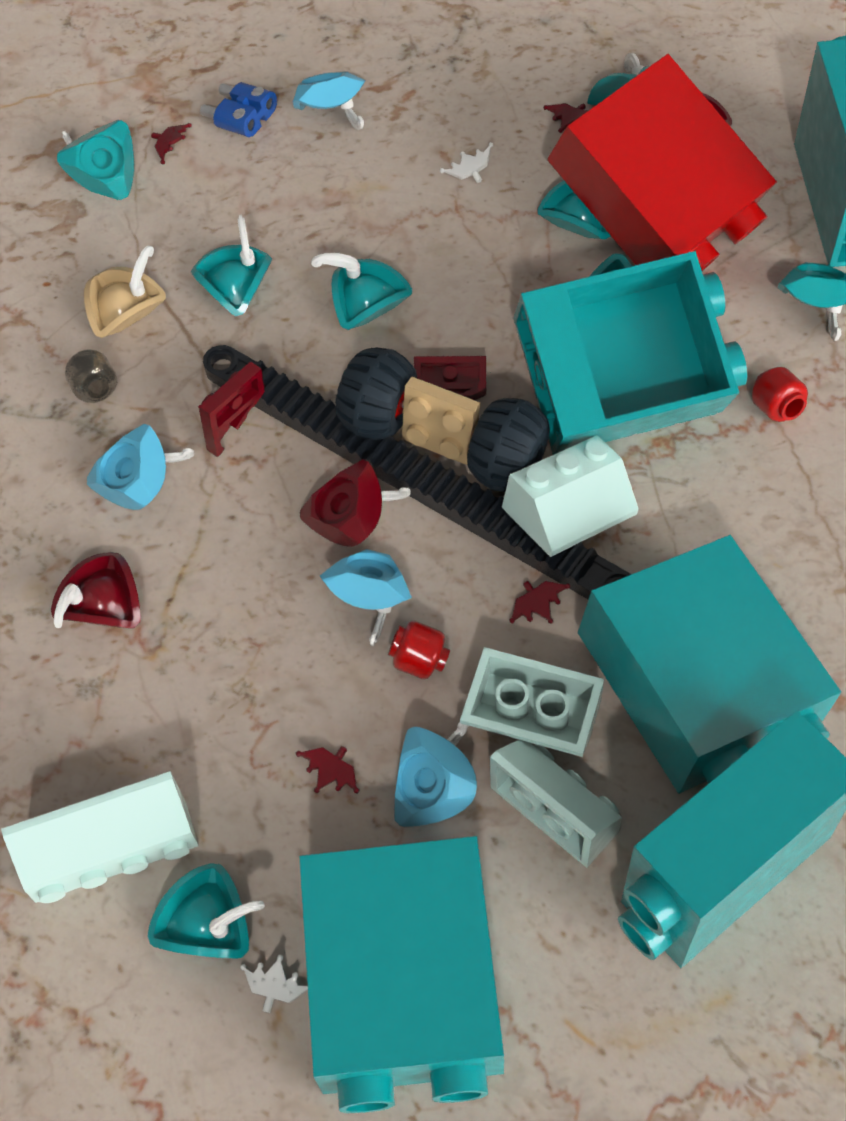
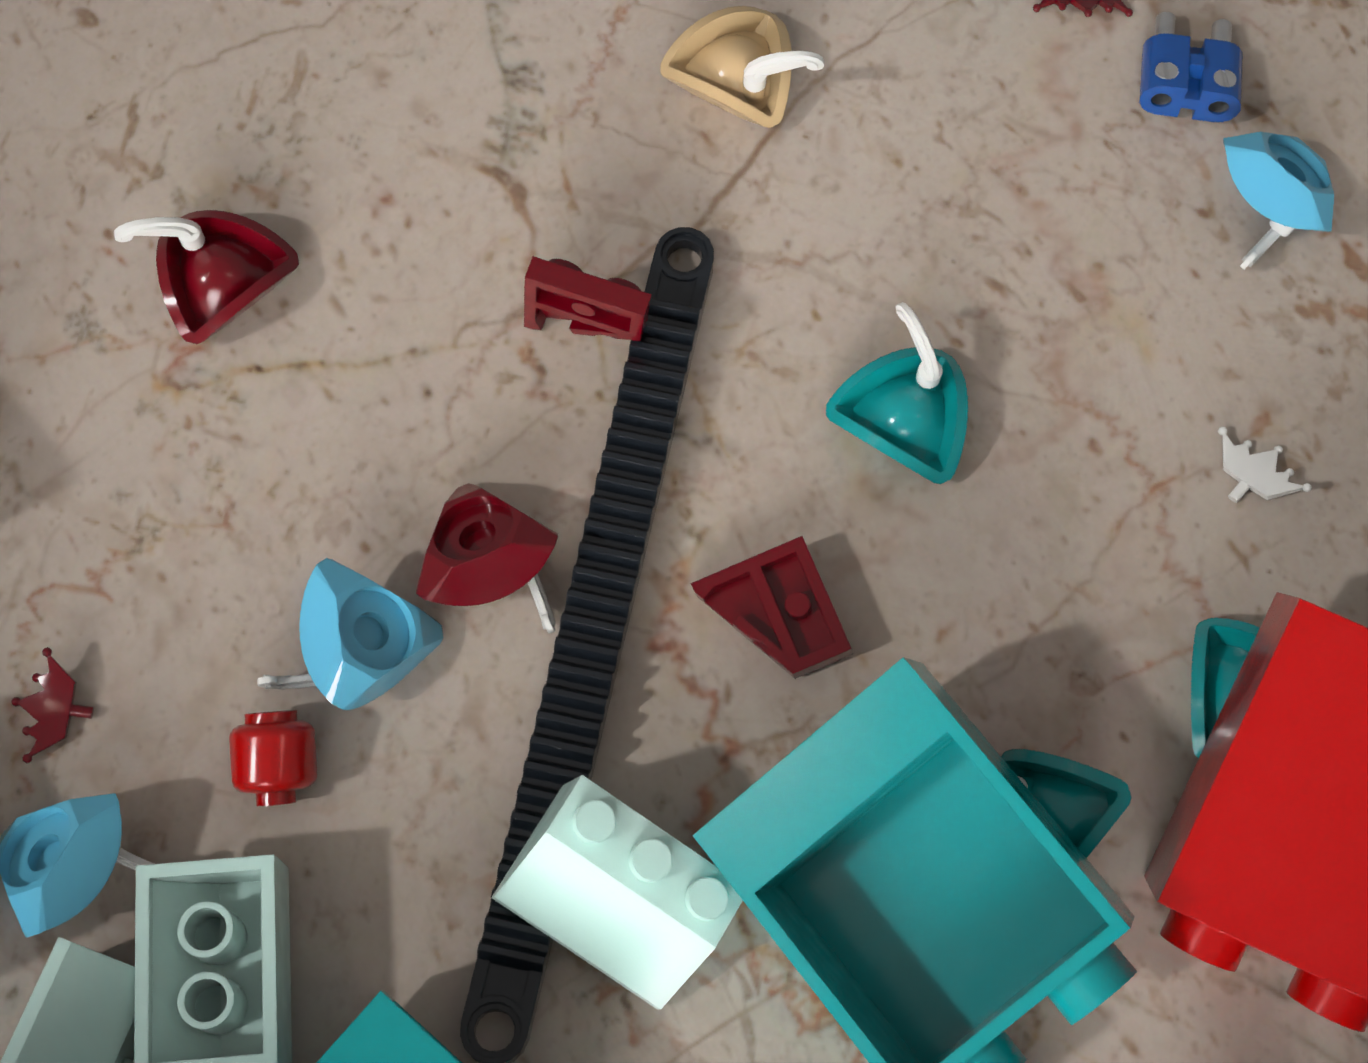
camera: 60 degrees right, 10 degrees up
(90, 376) = (578, 89): clear smoke head -> none
(133, 469) = (435, 220): medium azure hat -> none
(233, 272) = (852, 201): teal hat -> none
(384, 394) = (667, 743): black plate -> none
(537, 600) = (435, 905): dark red piece -> none

